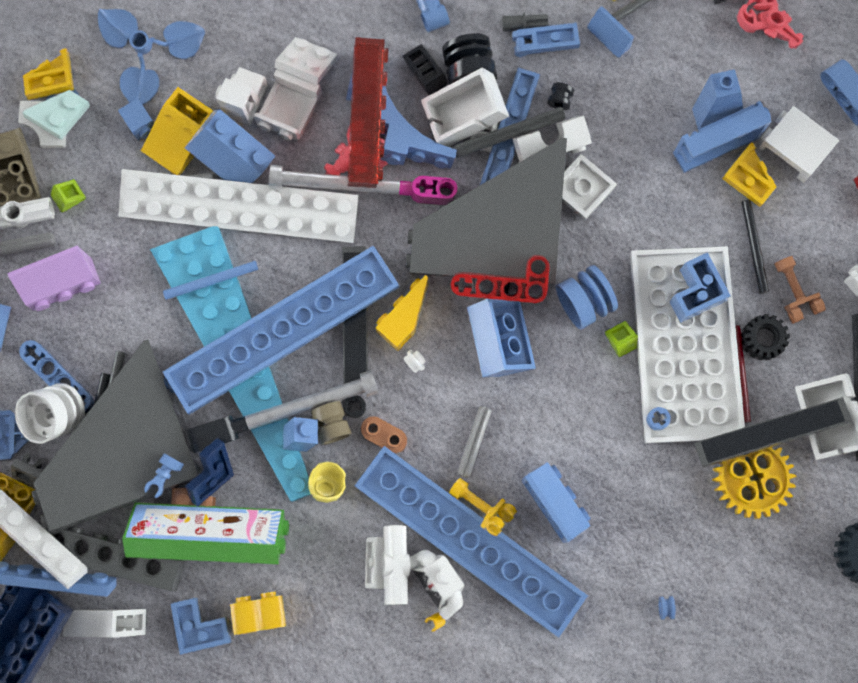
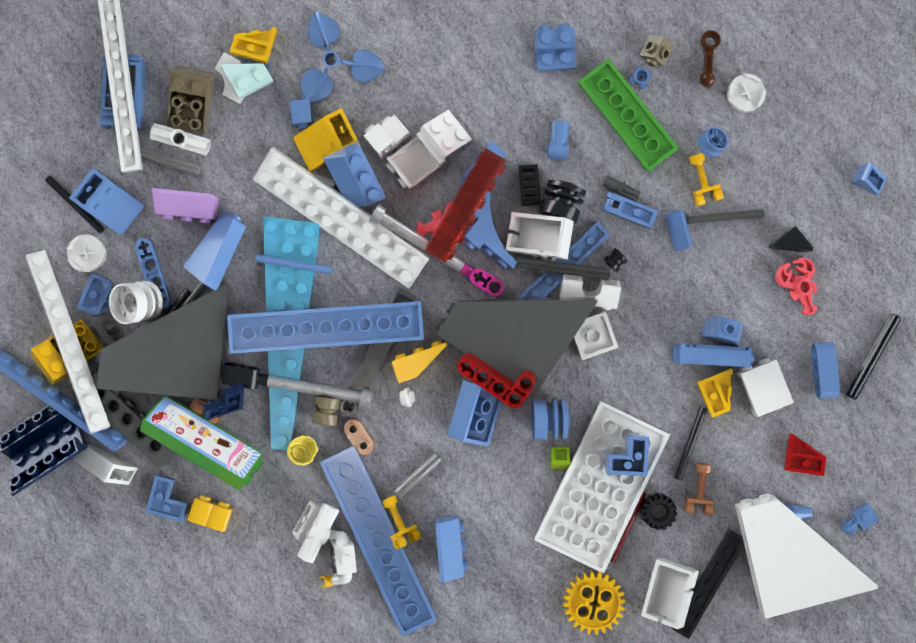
camera: 20 degrees right, 10 degrees up
(67, 195) = (224, 142): lime slope -> none
(115, 310) = (216, 249): none -> medium blue slope
(168, 464) = (199, 383): medium blue piece -> none
(300, 434) = (300, 408): medium blue brick -> none
(660, 411) = (555, 525): medium blue bush -> none
(773, 432) = (622, 582): black tile -> none

